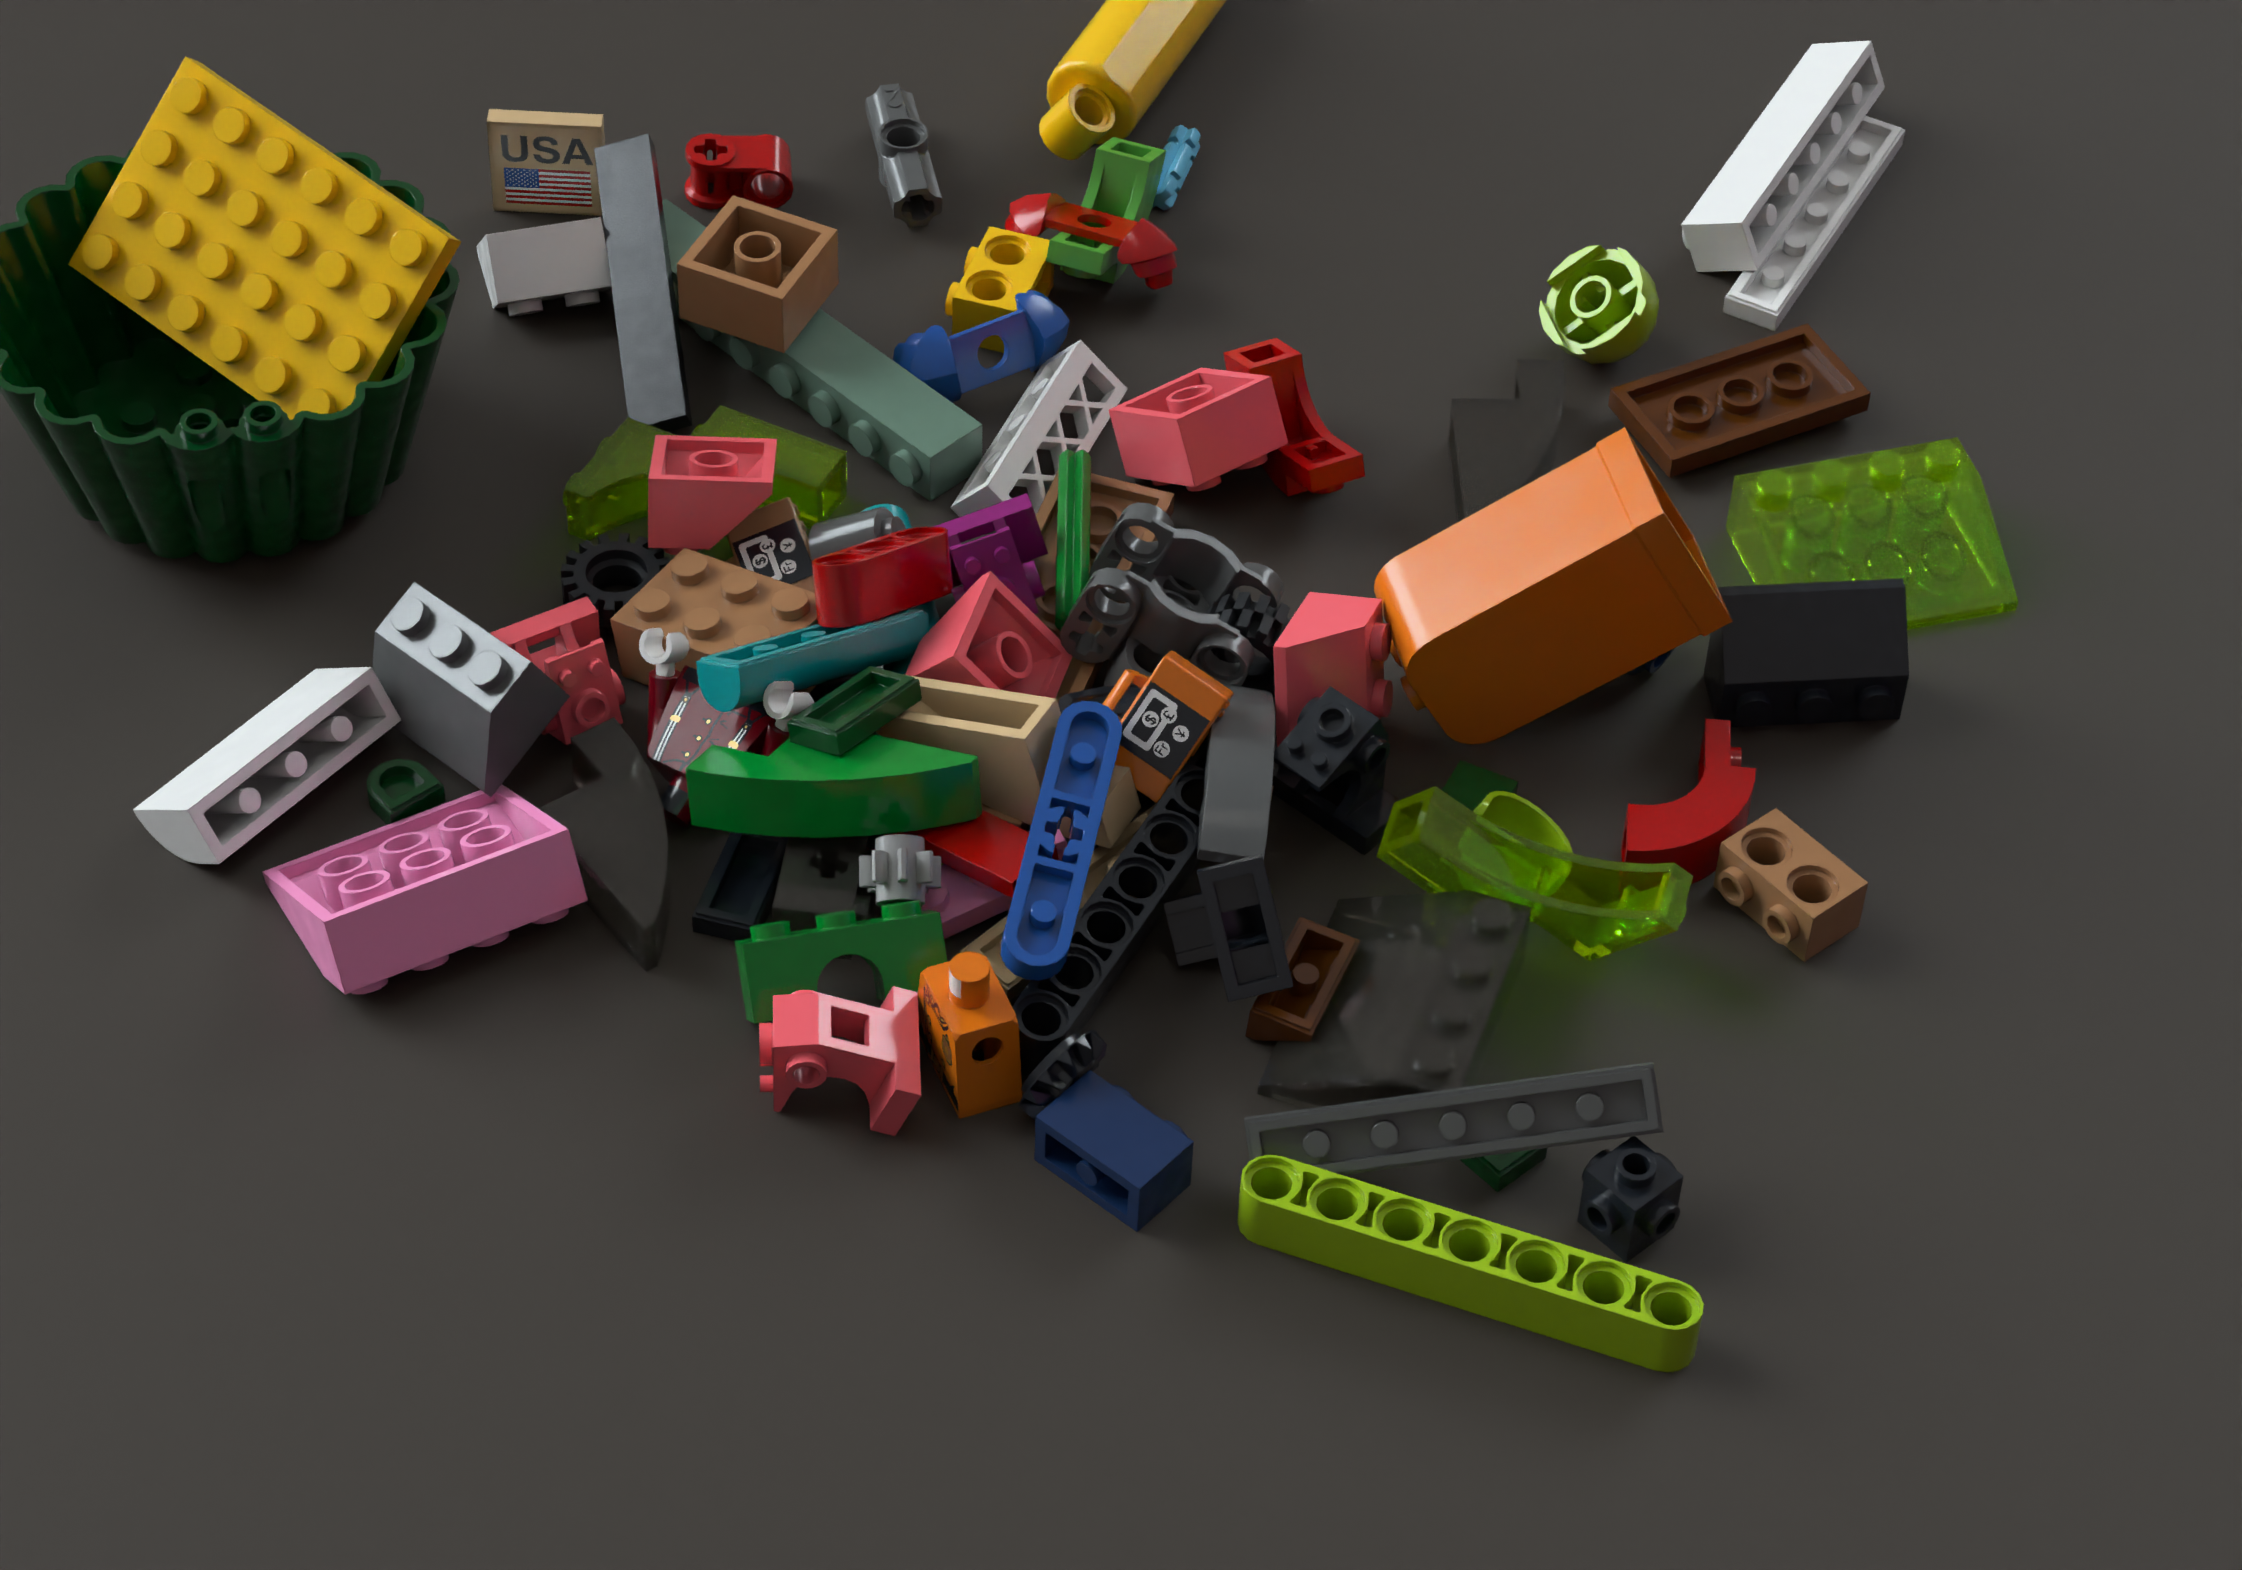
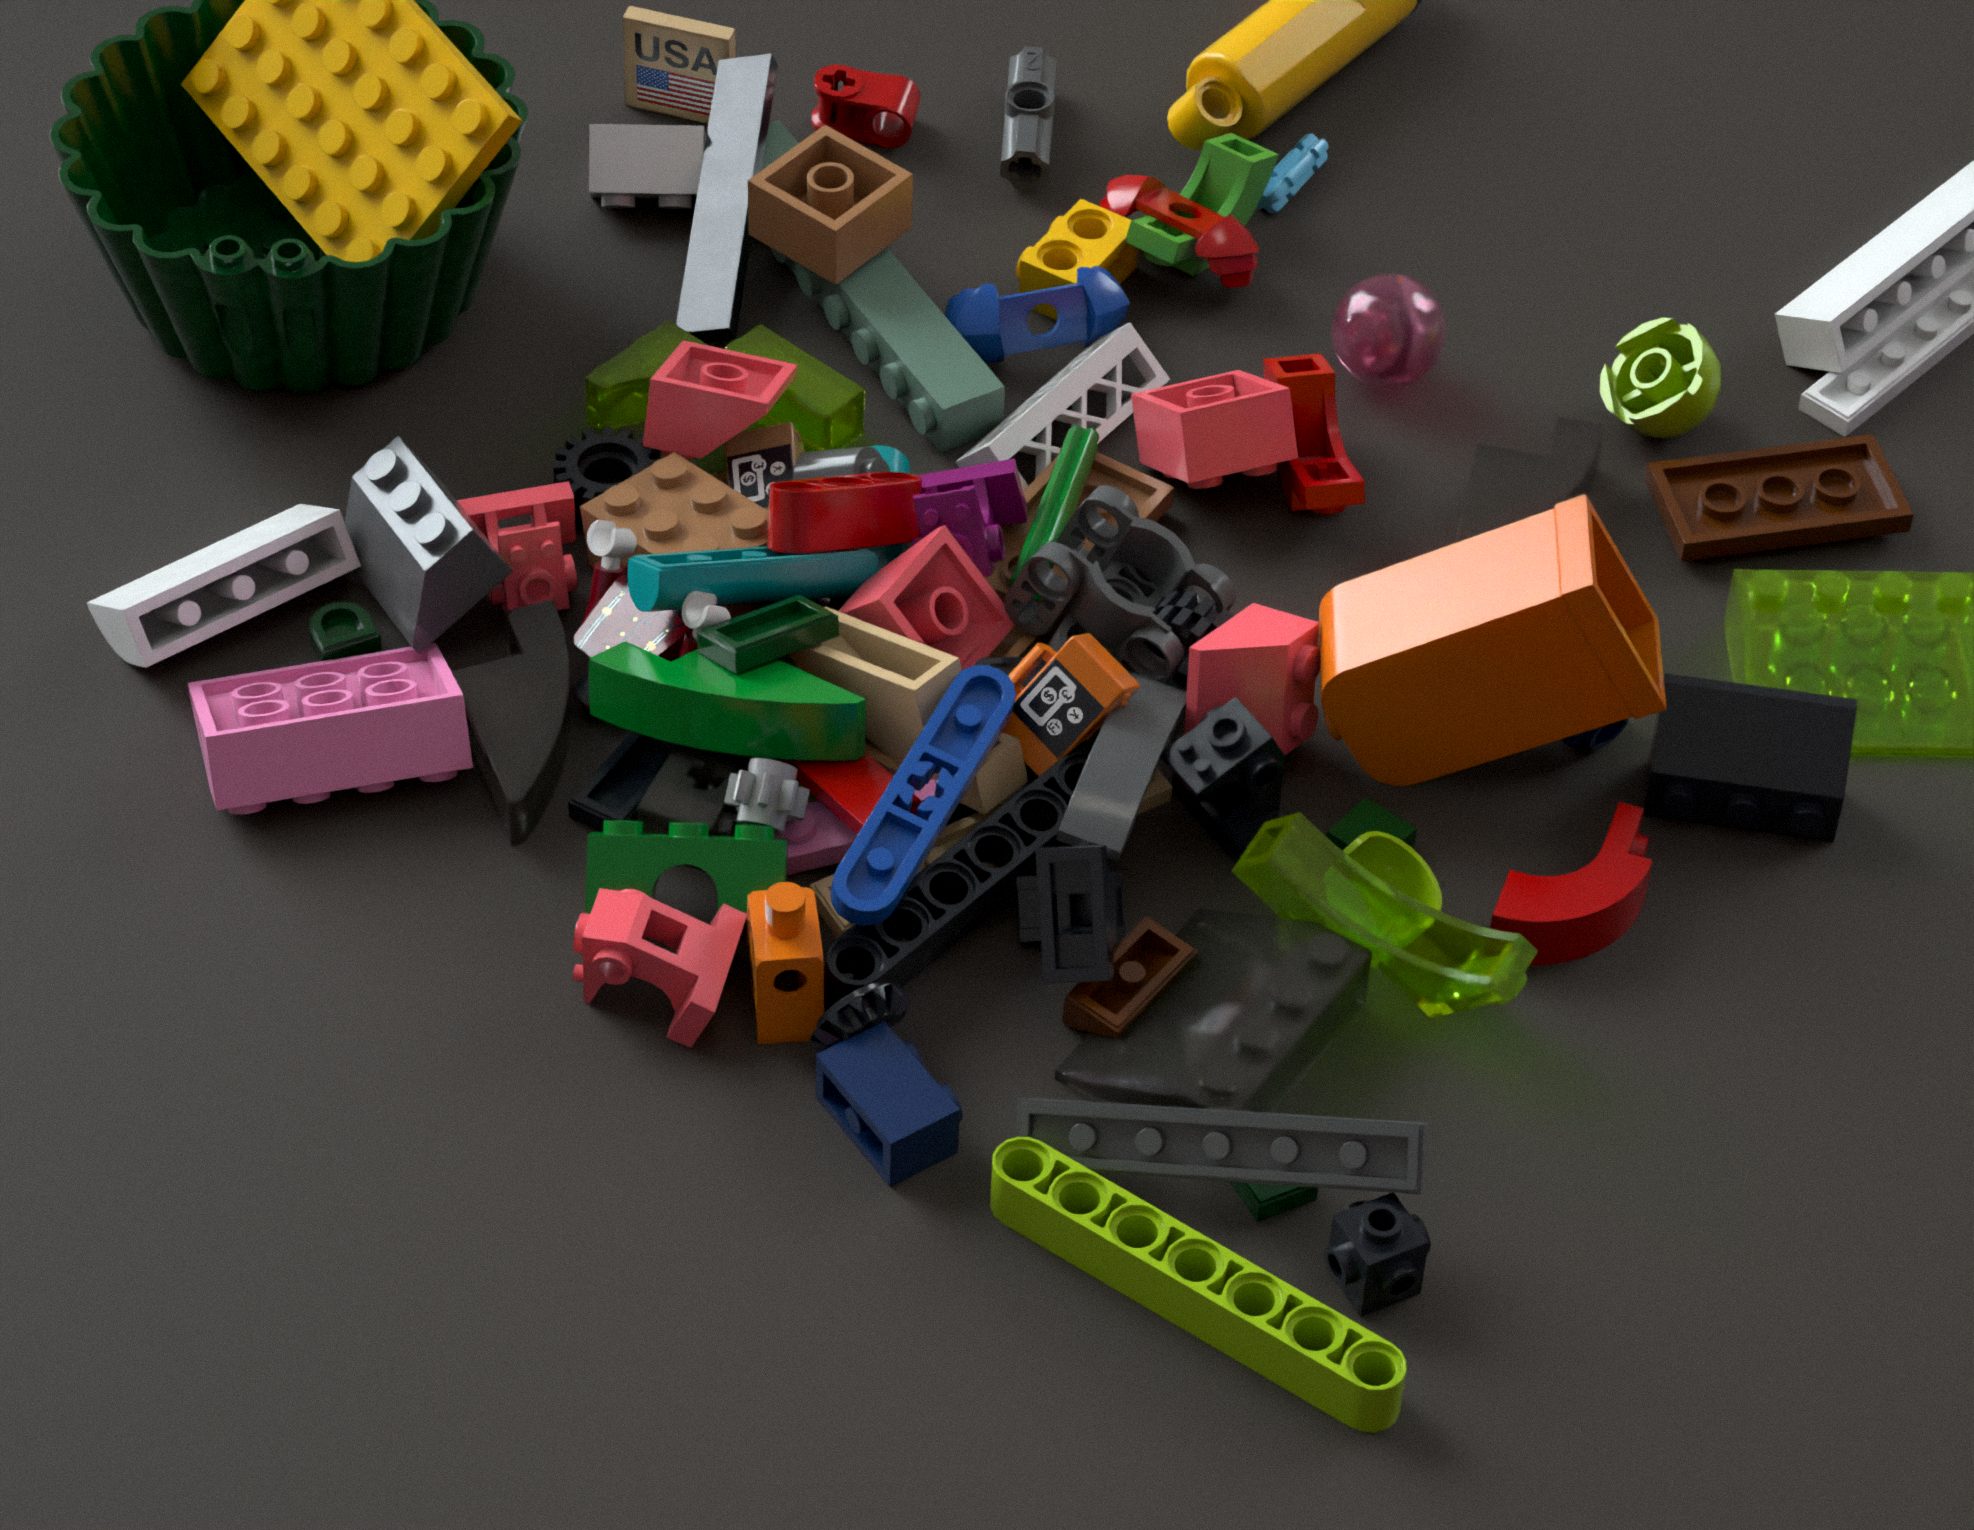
camera: 15 degrees right, 0 degrees up
(1328, 304) = (1389, 330): none -> clear pink helmet
(1790, 884) = (1652, 982): medium nougat brick -> none

